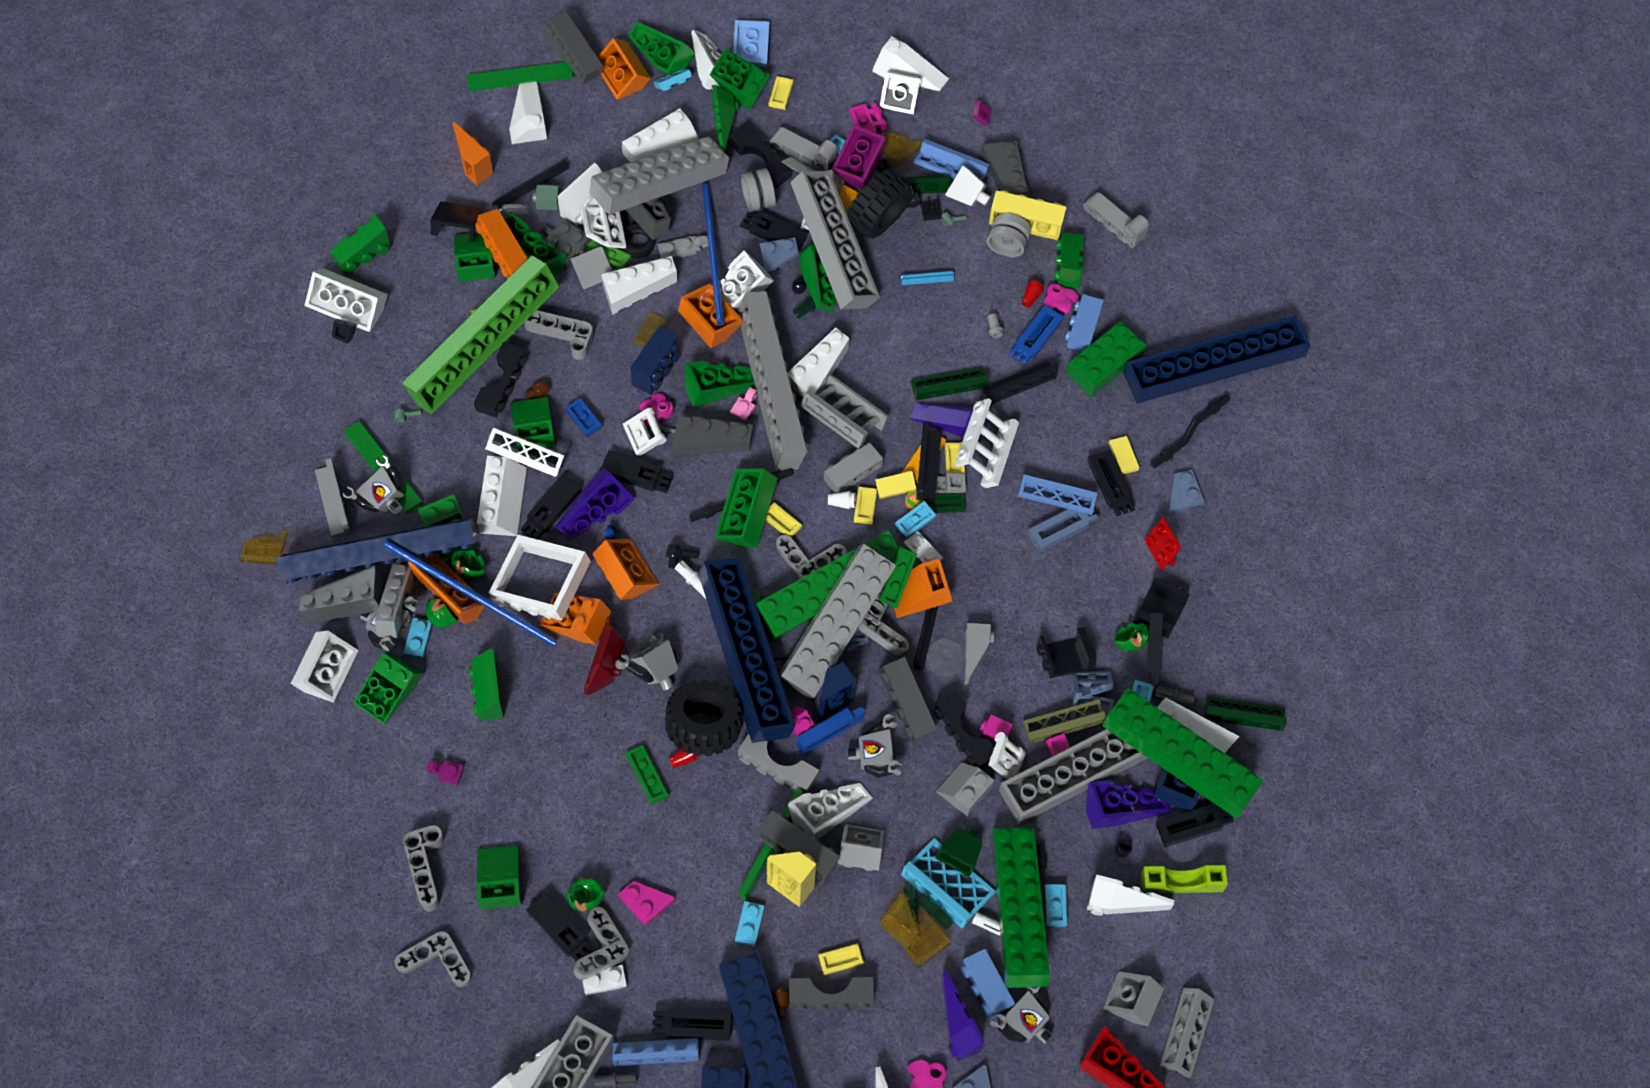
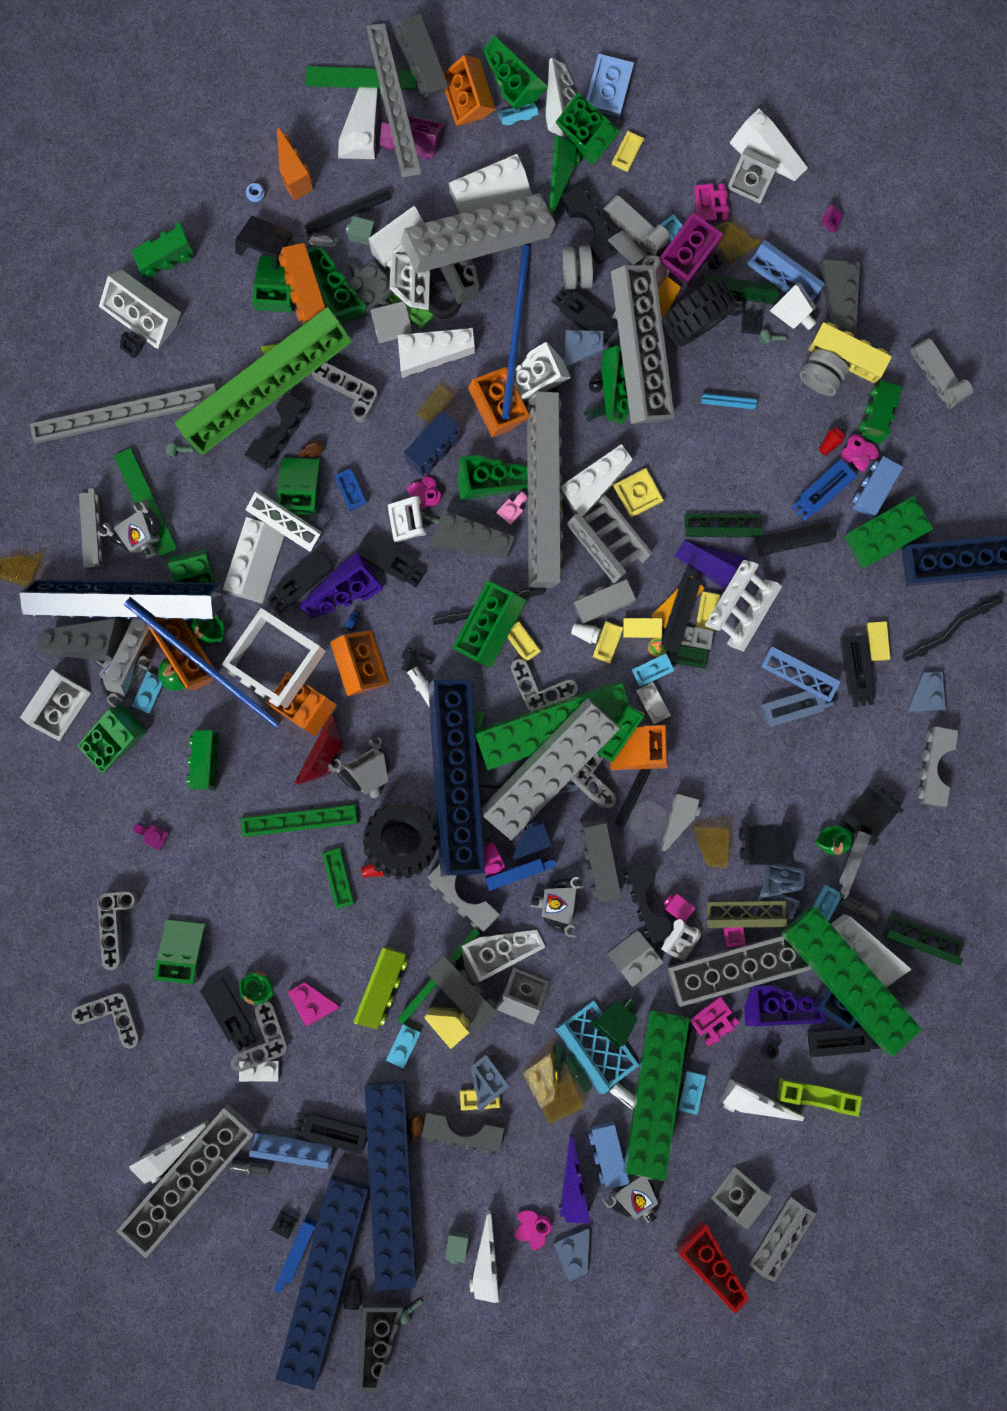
camera: 15 degrees right, 20 degrees up
(340, 394) = (120, 414): none -> light grey plate
(438, 180) = (255, 187): none -> light blue plate
(556, 84) = (393, 100): none -> light grey plate
(576, 113) = (424, 133): none -> magenta slope
(595, 727) = (299, 820): none -> green tile
(682, 247) = (486, 315): light grey hinge -> none
(713, 866) = (380, 988): none -> lime slope
(845, 937) = (487, 1082): none -> sand blue wing
(861, 370) = (638, 493): none -> light yellow tile
(995, 329) = (784, 470): light grey pin -> none
(1014, 666) = (713, 845): none -> clear yellow wing
(1055, 827) = (710, 1017): none -> dark pink plate
(1163, 544) = (891, 750): red hinge -> none
(1214, 574) = (933, 790): none -> light grey arch

